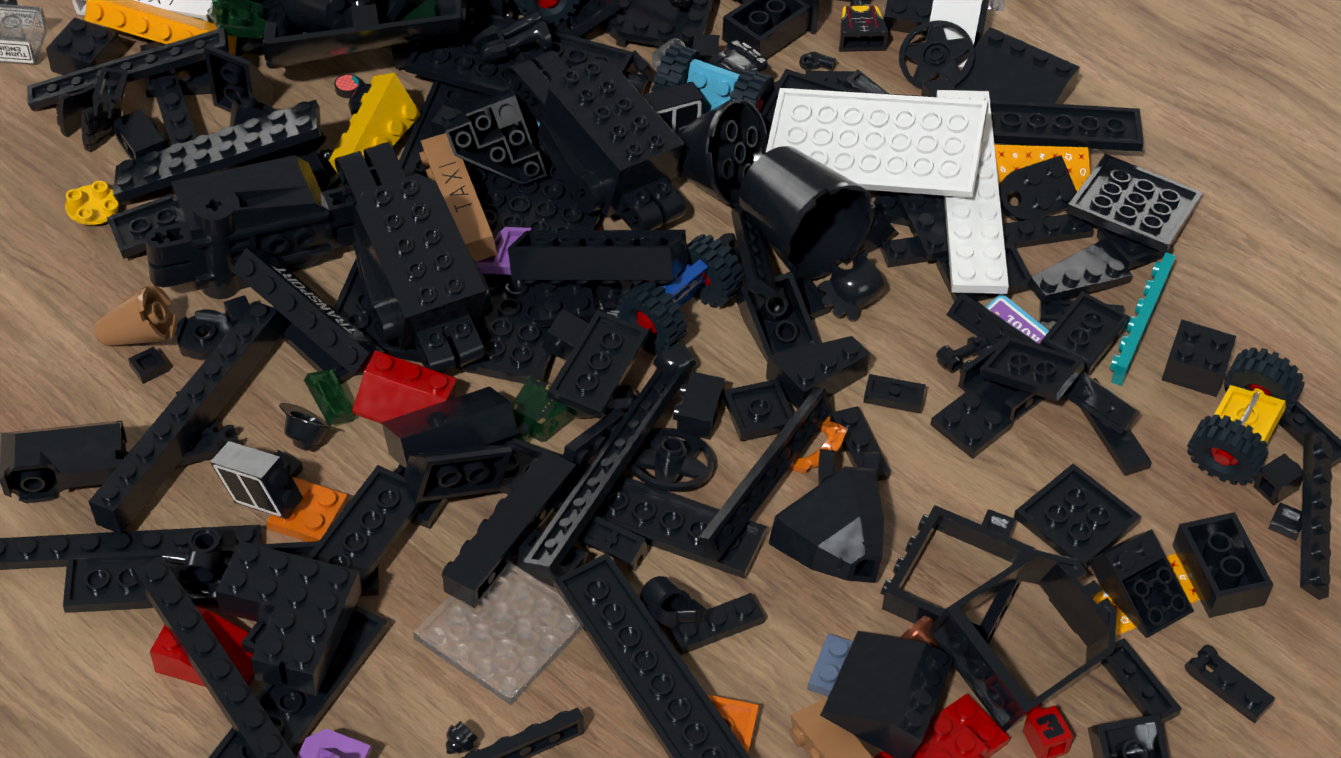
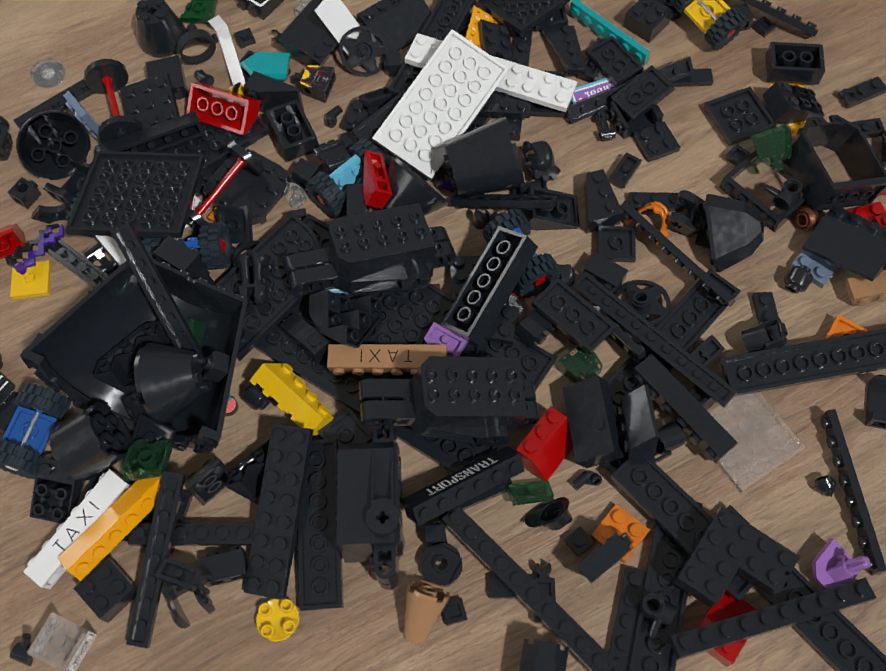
camera: 65 degrees left, 15 degrees up
(373, 455) = (587, 478): none -> black arm
(455, 523) = (669, 439): none -> black piece
(698, 101) = (375, 181): none -> red slope
(800, 643) = (798, 279): none -> black head
(936, 583) = (788, 195): none -> black piece
(1010, 541) = (774, 146): none -> clear green torso

